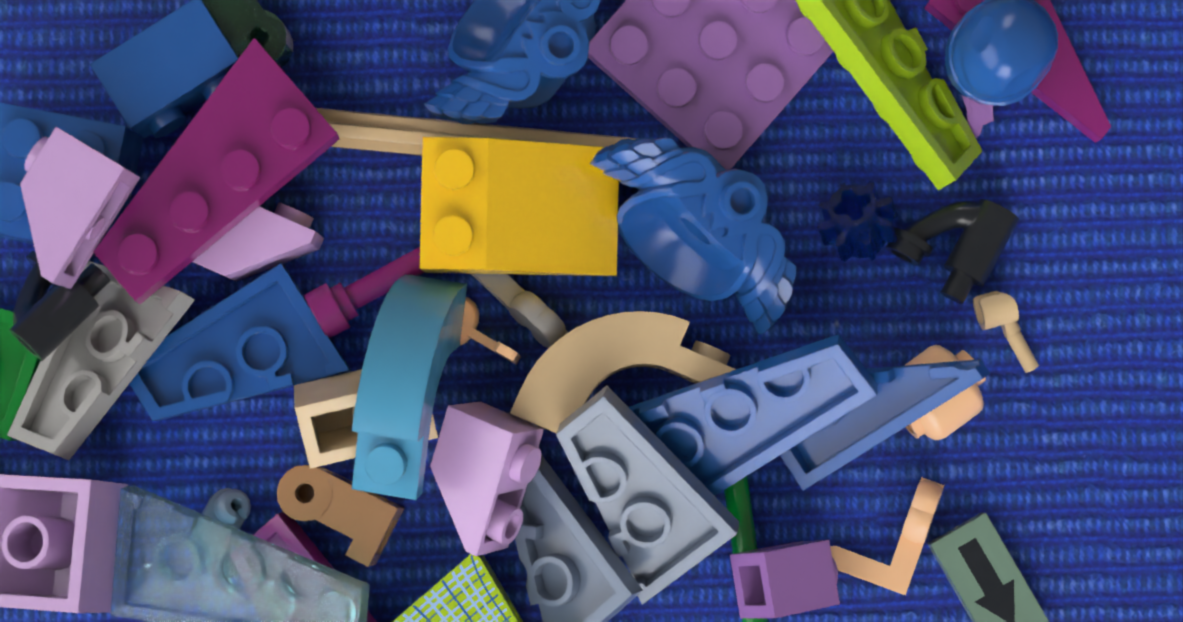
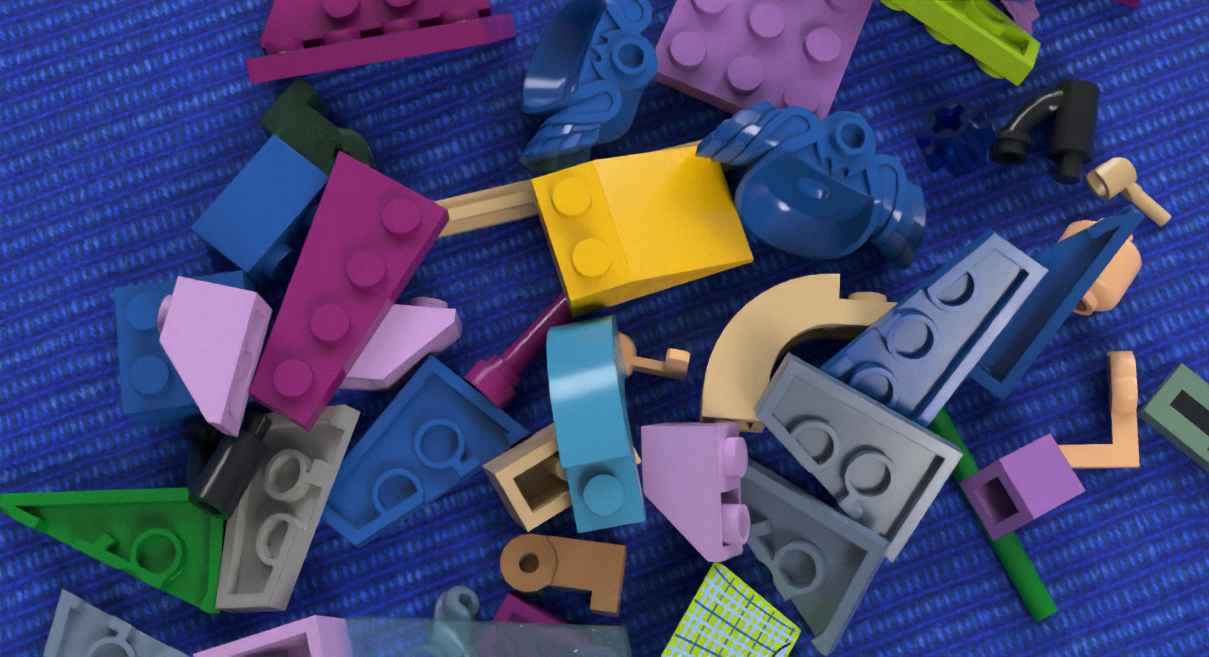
camera: 15 degrees left, 10 degrees down
(525, 308) = (676, 321): light grey piece -> none

